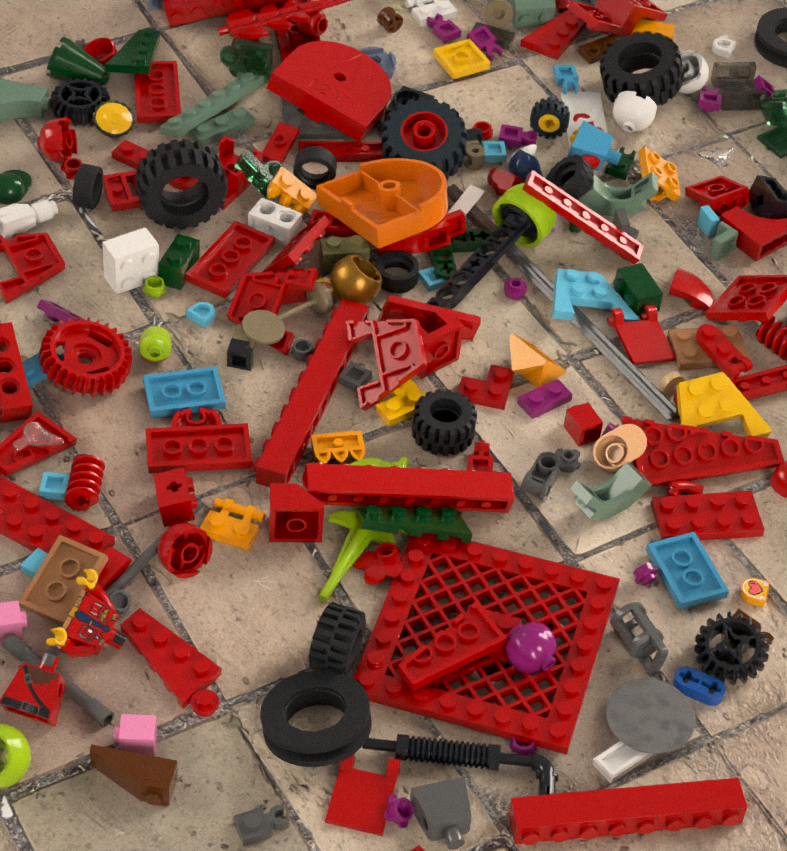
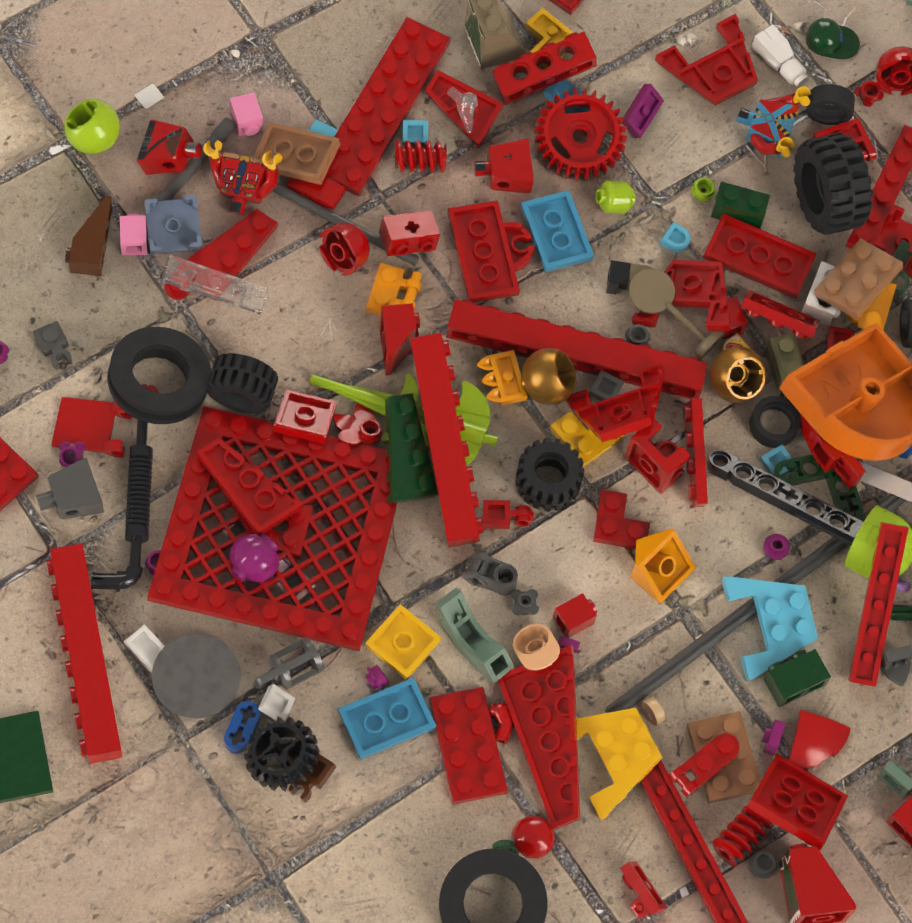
camera: 80 degrees right, 20 degrees up
(94, 226) = (773, 122): none -> torso
(108, 417) = (508, 167): none -> red torso
(120, 600) = (282, 202): dark grey plate -> none
(130, 260) = (722, 155): white brick -> none
(133, 691) = (173, 225): none -> sand blue panel
(215, 658) = (214, 284): none -> clear hinge
(274, 187) = (858, 279): none -> medium nougat plate
(347, 406) = (549, 376): none -> pearl gold wheel
(374, 598) = (305, 416): none -> tile
(544, 398) = (612, 580): magenta plate -> none
(609, 550) = (403, 642): none -> yellow plate
(642, 339) = (719, 683): red flag -> none
(678, 653) = (276, 703): none -> white plate
(692, 310) = (772, 737): none -> magenta plate
(754, 591) = (371, 789): tile -> none

